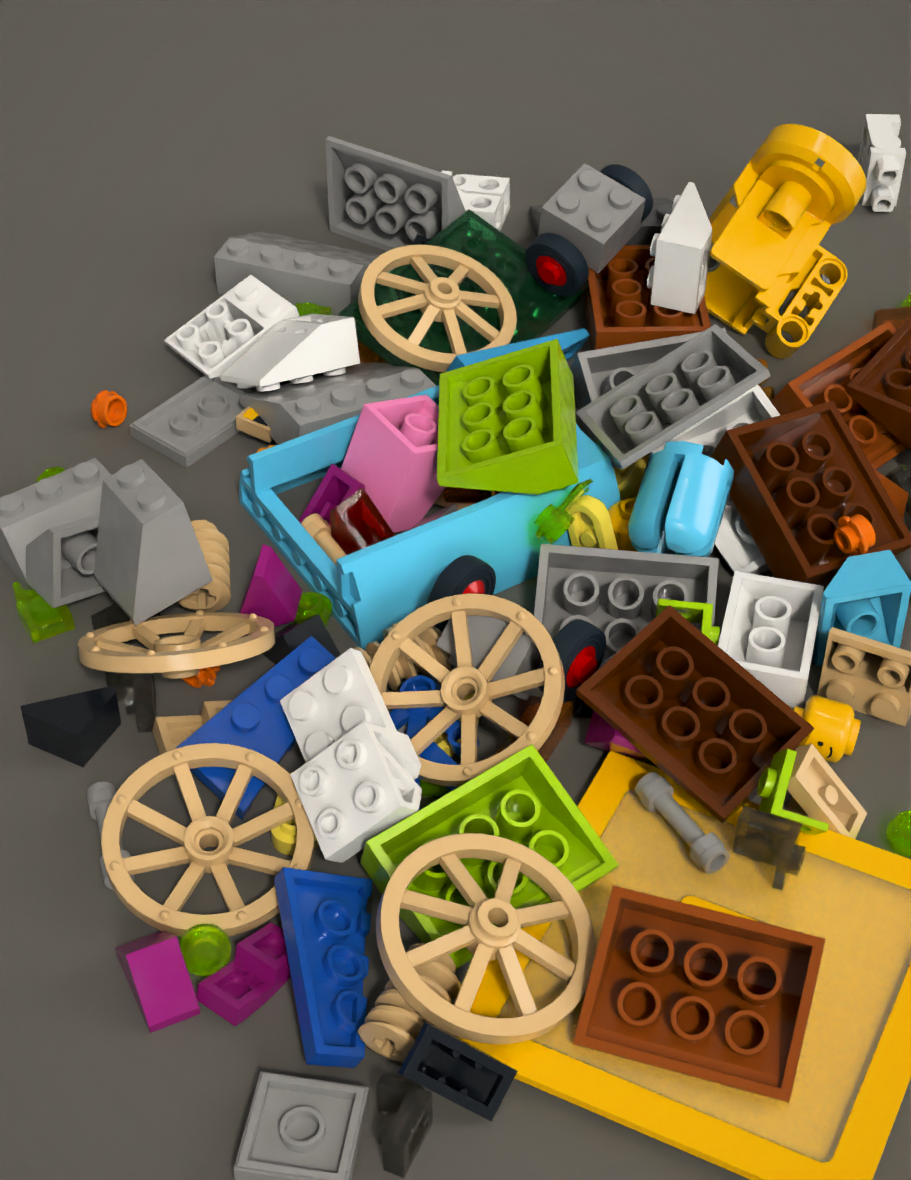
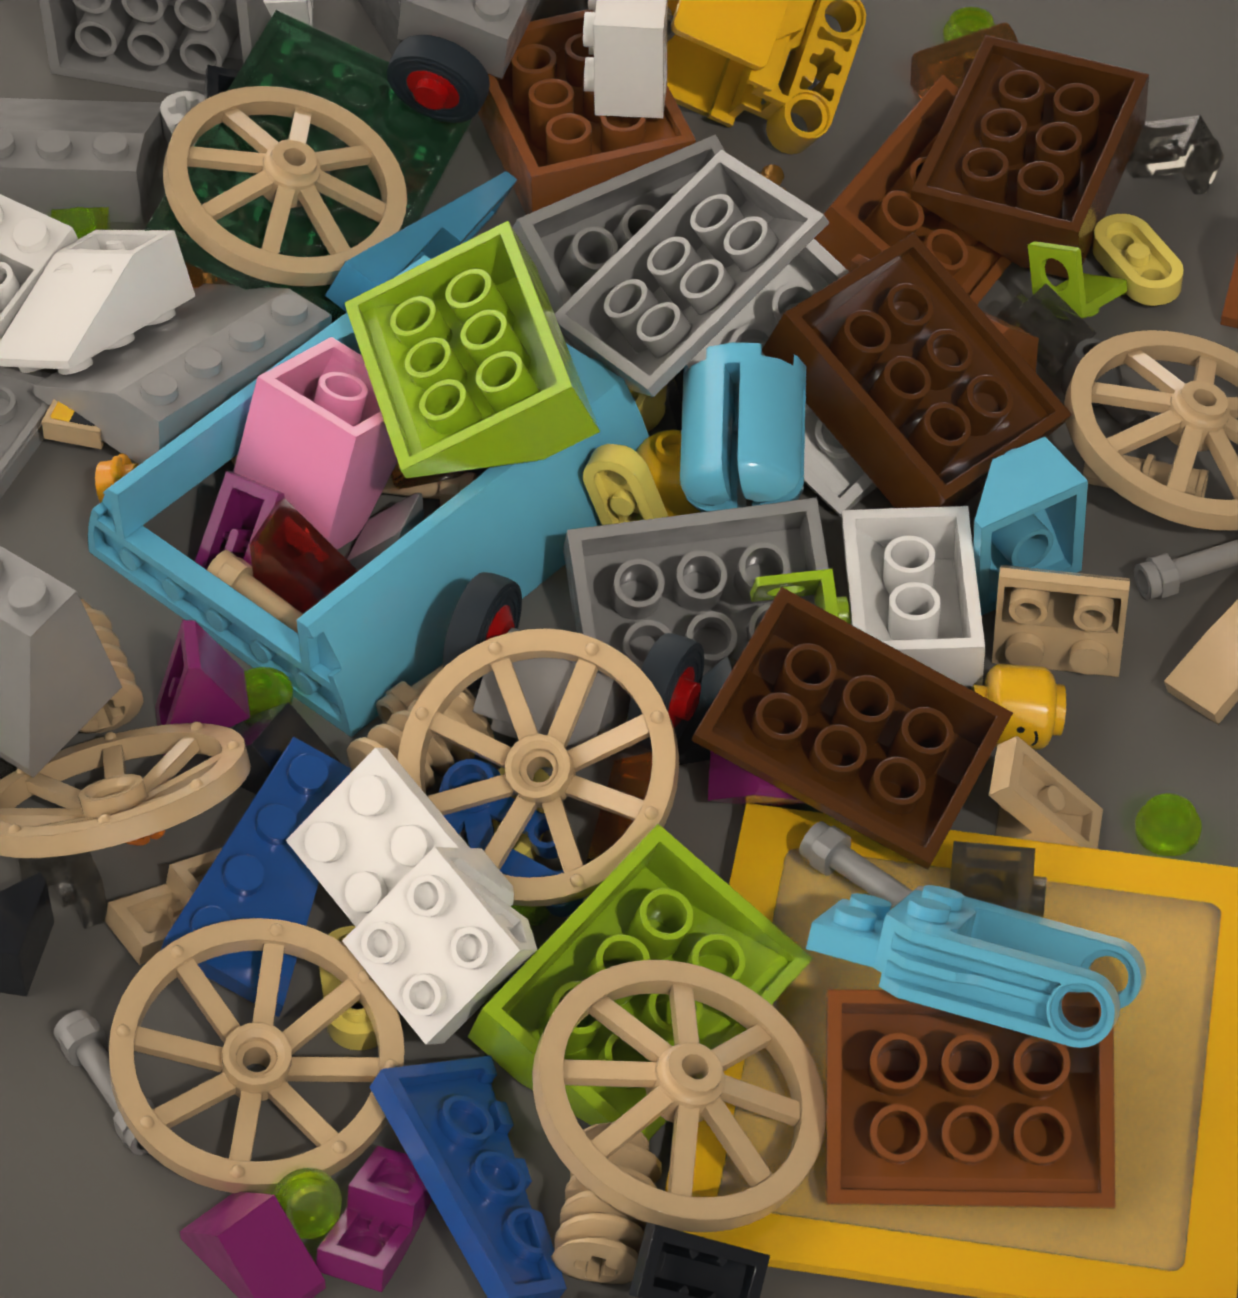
camera: 15 degrees left, 5 degrees up
(555, 521) = (582, 490): clear neon green plate -> none
(735, 893) = (980, 960): none -> medium azure plate
(773, 789) = (986, 809): lime bracket -> none
(854, 535) = (992, 425): orange plate -> none

